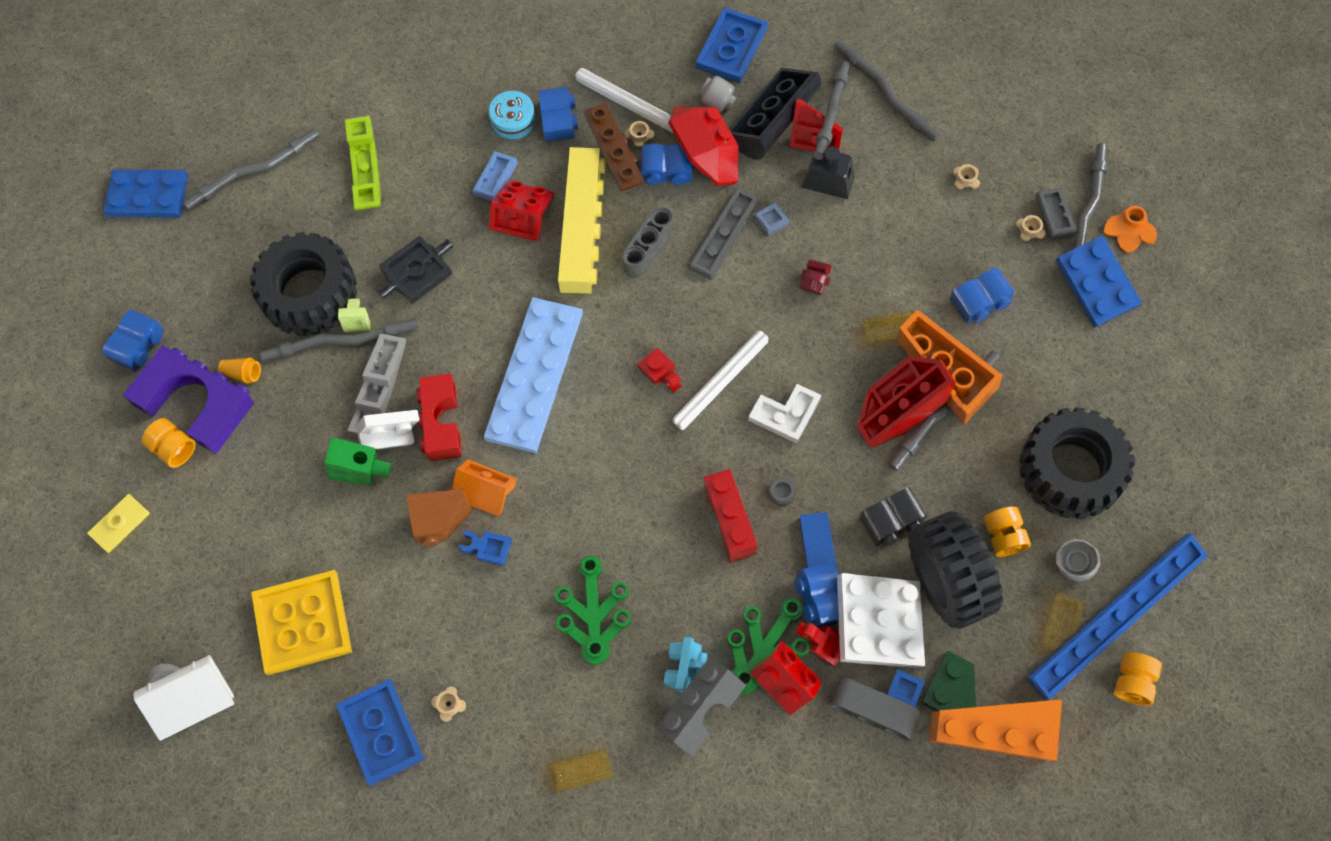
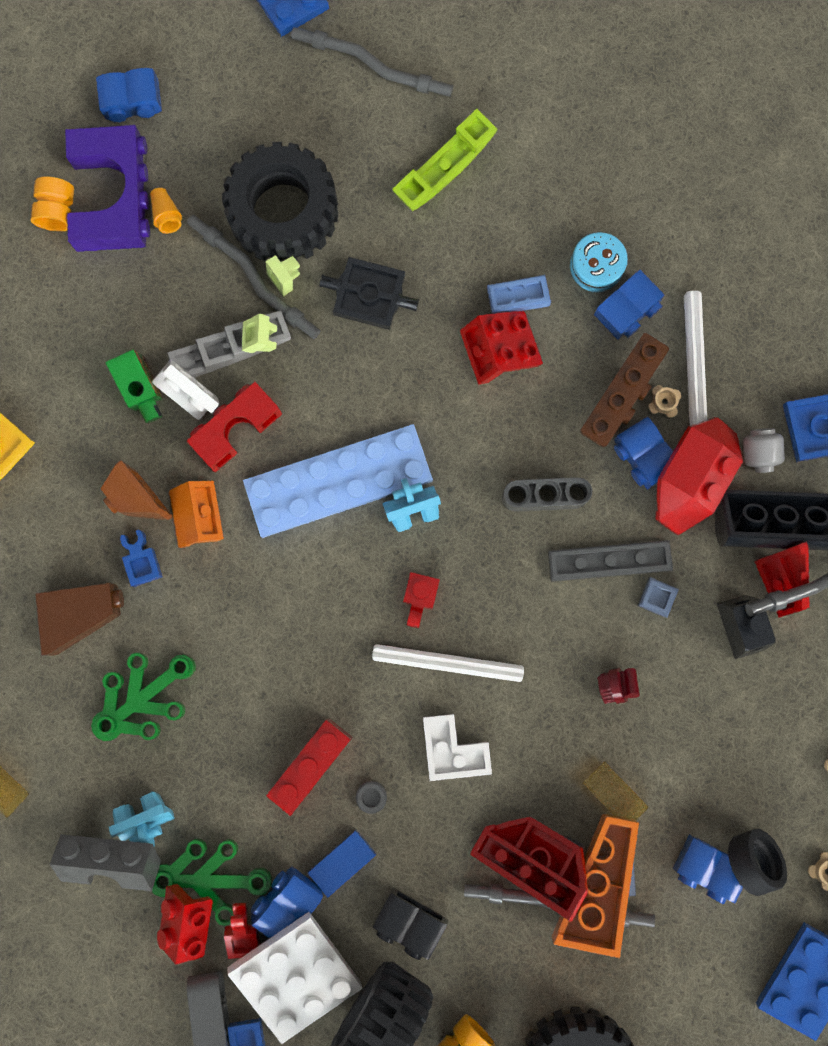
camera: 55 degrees right, 15 degrees up
(387, 353) = (256, 334): none -> yellowish green tile
(492, 618) = (74, 614): none -> reddish brown slope
(580, 221) = (527, 411): light yellow brick -> none
(585, 329) = (409, 501): none -> medium azure hips
(994, 260) = (772, 869): none -> black tyre

